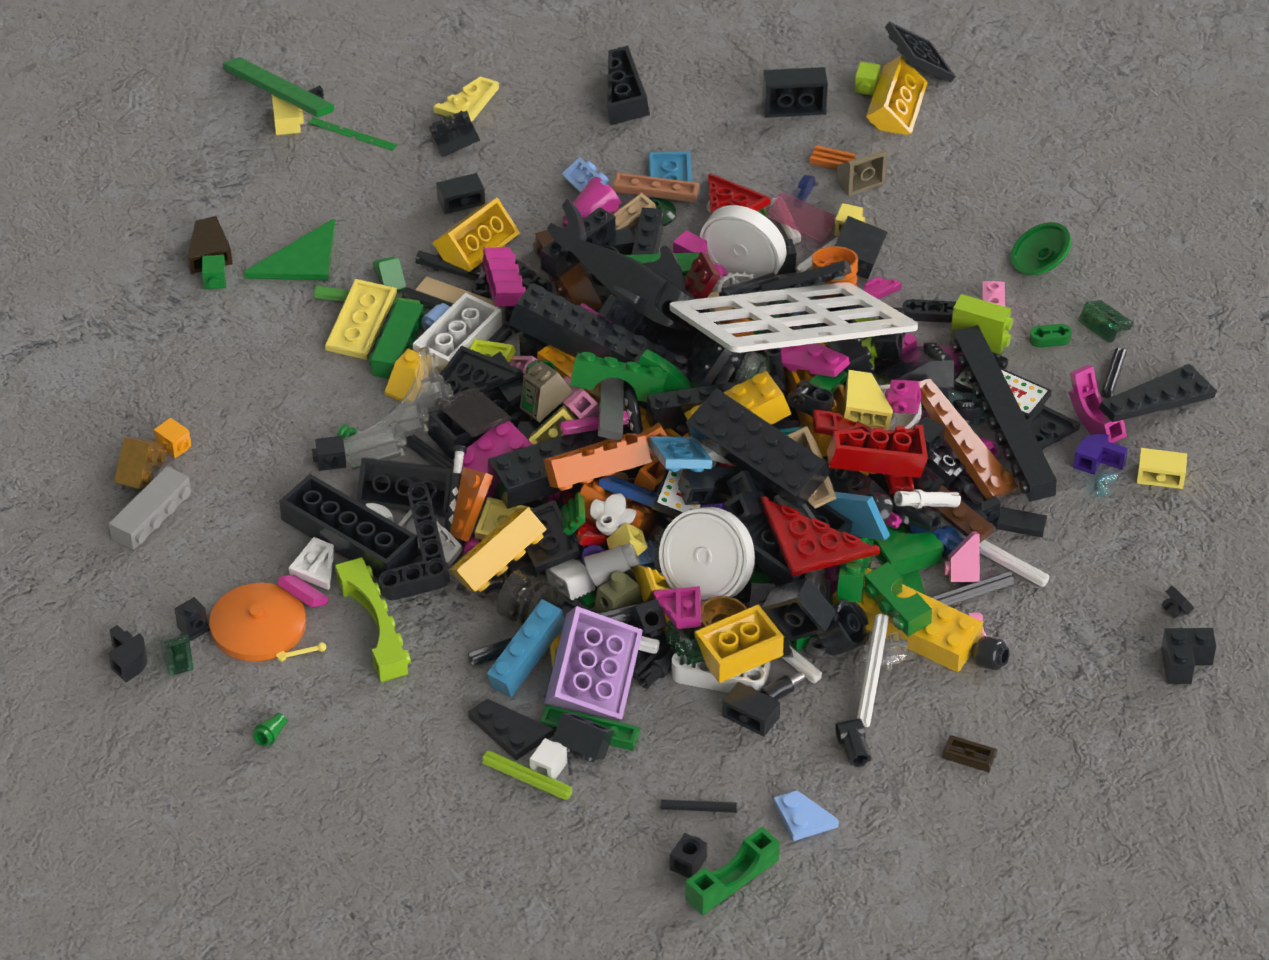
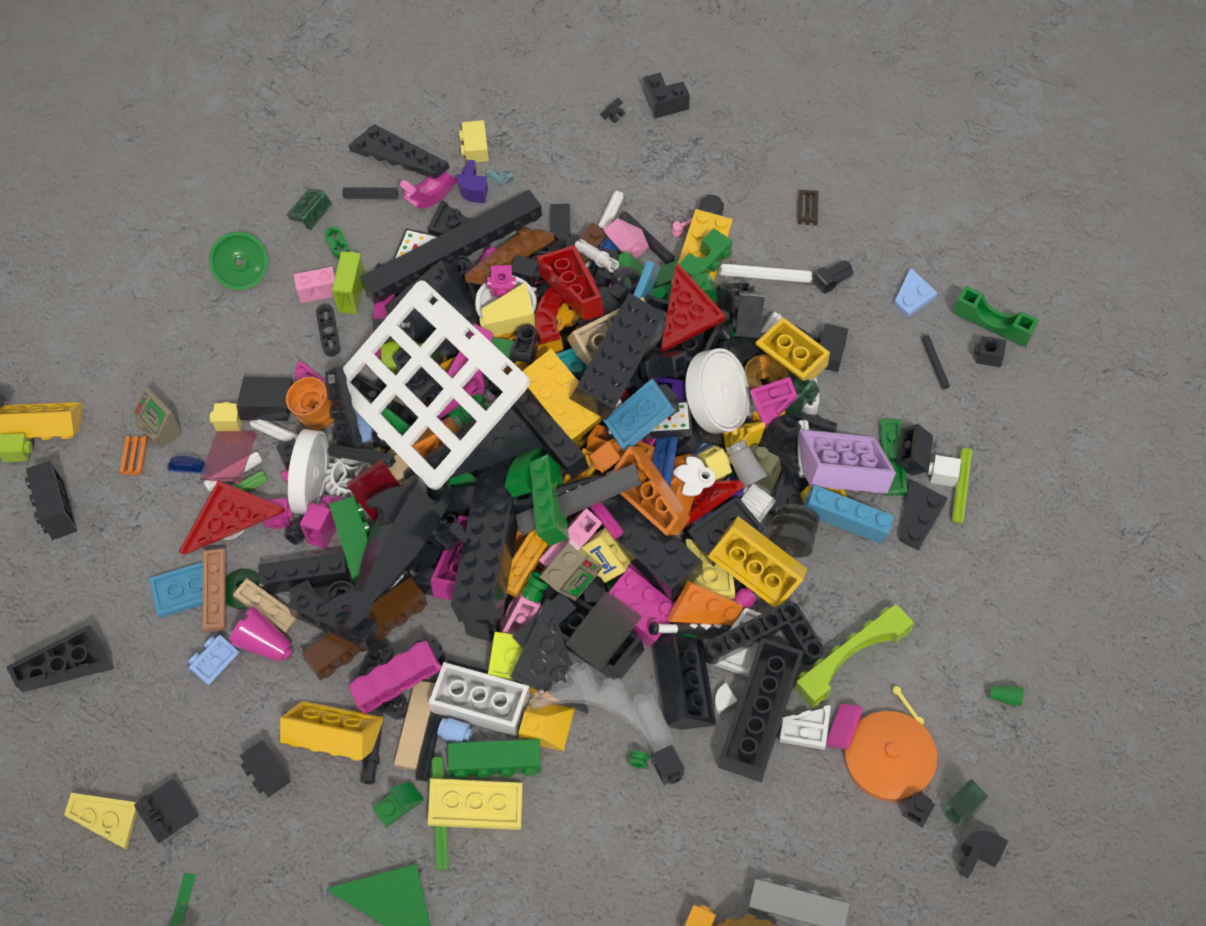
camera: 105 degrees left, 15 degrees up
(427, 452) = (633, 682): black axle -> none
(488, 652) = (840, 546): black axle -> none
(575, 511) = (707, 513): green tile -> none

